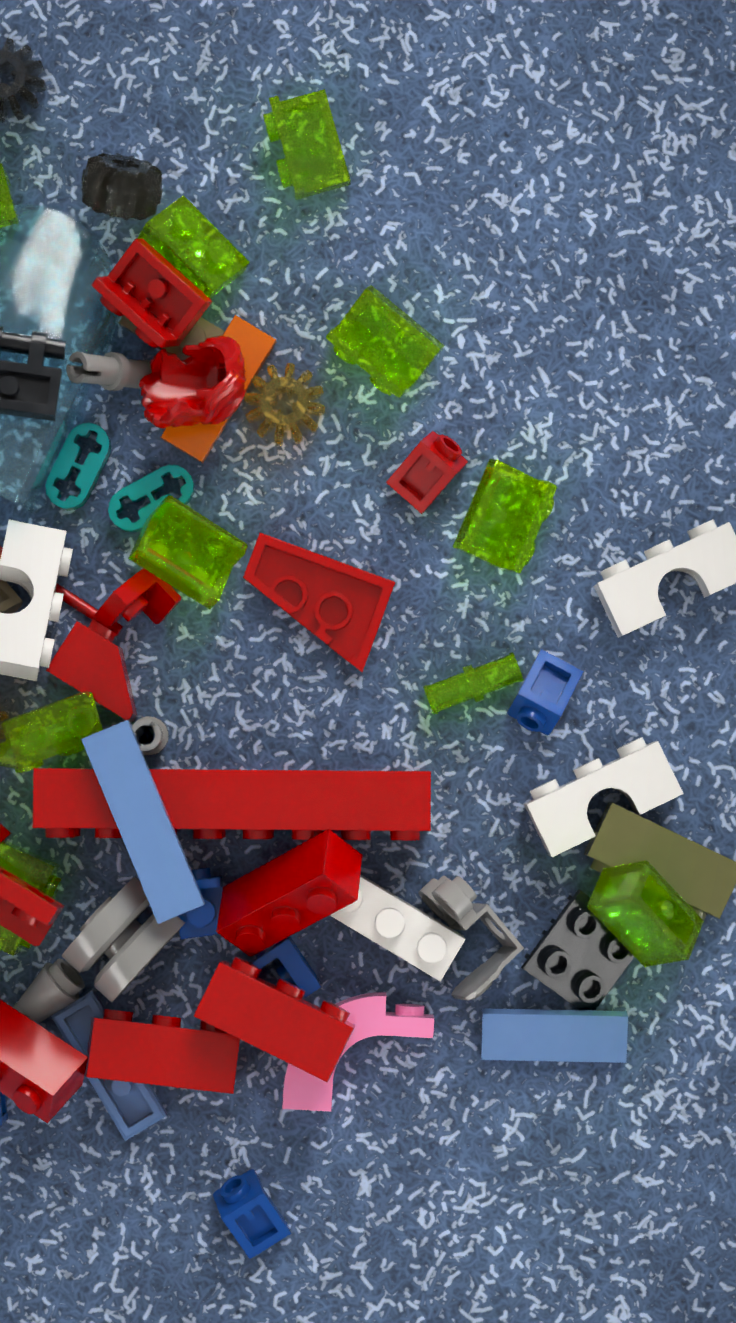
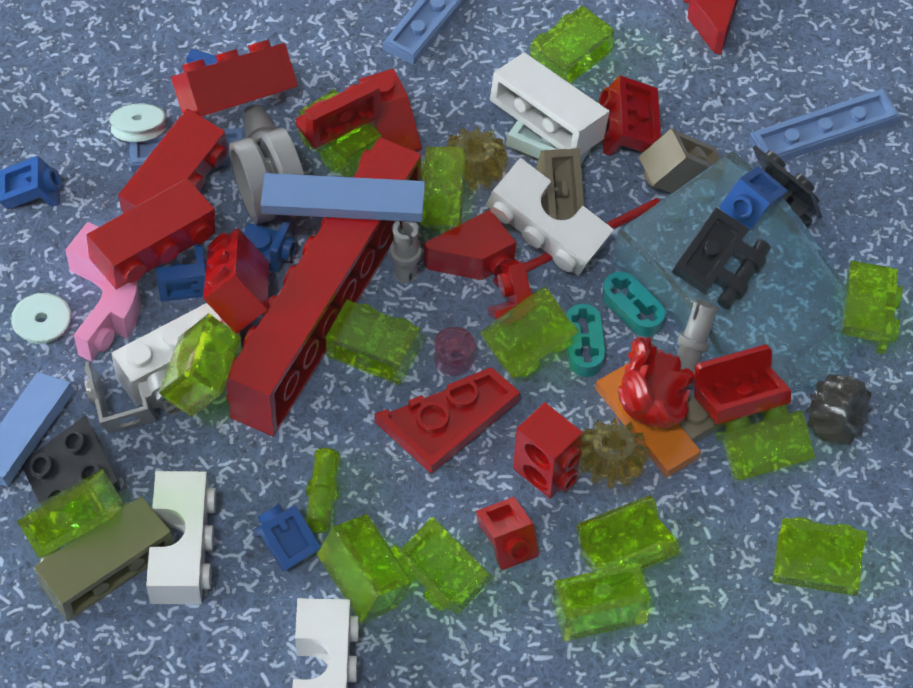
camera: 115 degrees right, 30 degrees down
(119, 1132) = (138, 122): none -> light aqua piece
(231, 620) = (452, 341): none -> clear pink wheel
(269, 718) = (373, 341): none -> clear neon green brick
(329, 461) = (548, 451): none -> red brick
(416, 1116) = (41, 306): none -> light aqua piece
(427, 866) = (200, 365): none -> clear neon green brick
(472, 335) = (600, 601): none -> clear neon green brick
(551, 588) = (364, 568): none -> clear neon green brick

